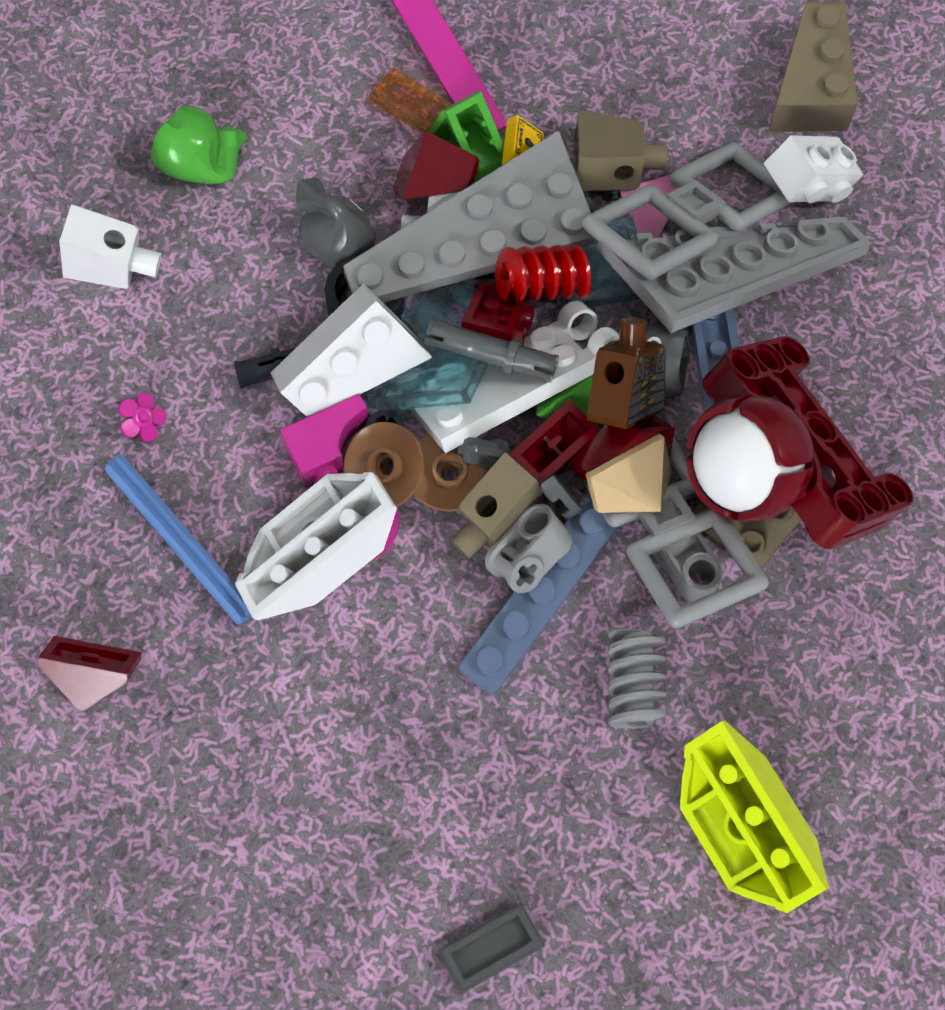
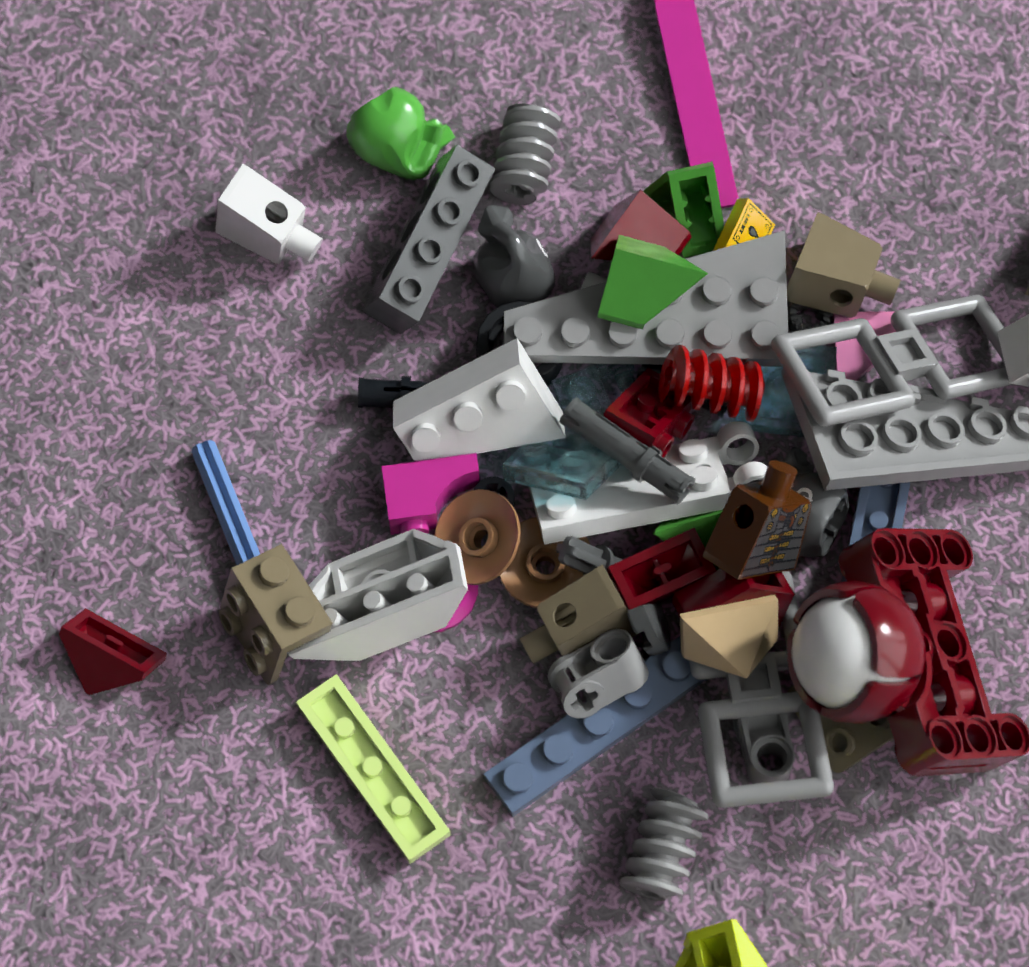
camera: 20 degrees right, 0 degrees up
(141, 417) = (246, 407): dark pink plant -> none
(224, 584) = (271, 611): none -> dark tan bracket
(254, 228) = (428, 240): none -> brick
(313, 133) = (524, 153): none -> light grey piece
(360, 694) = (373, 769): none -> yellowish green plate
(402, 113) = (626, 154): clear orange tile -> none
(457, 204) = (644, 282): none -> bright green slope

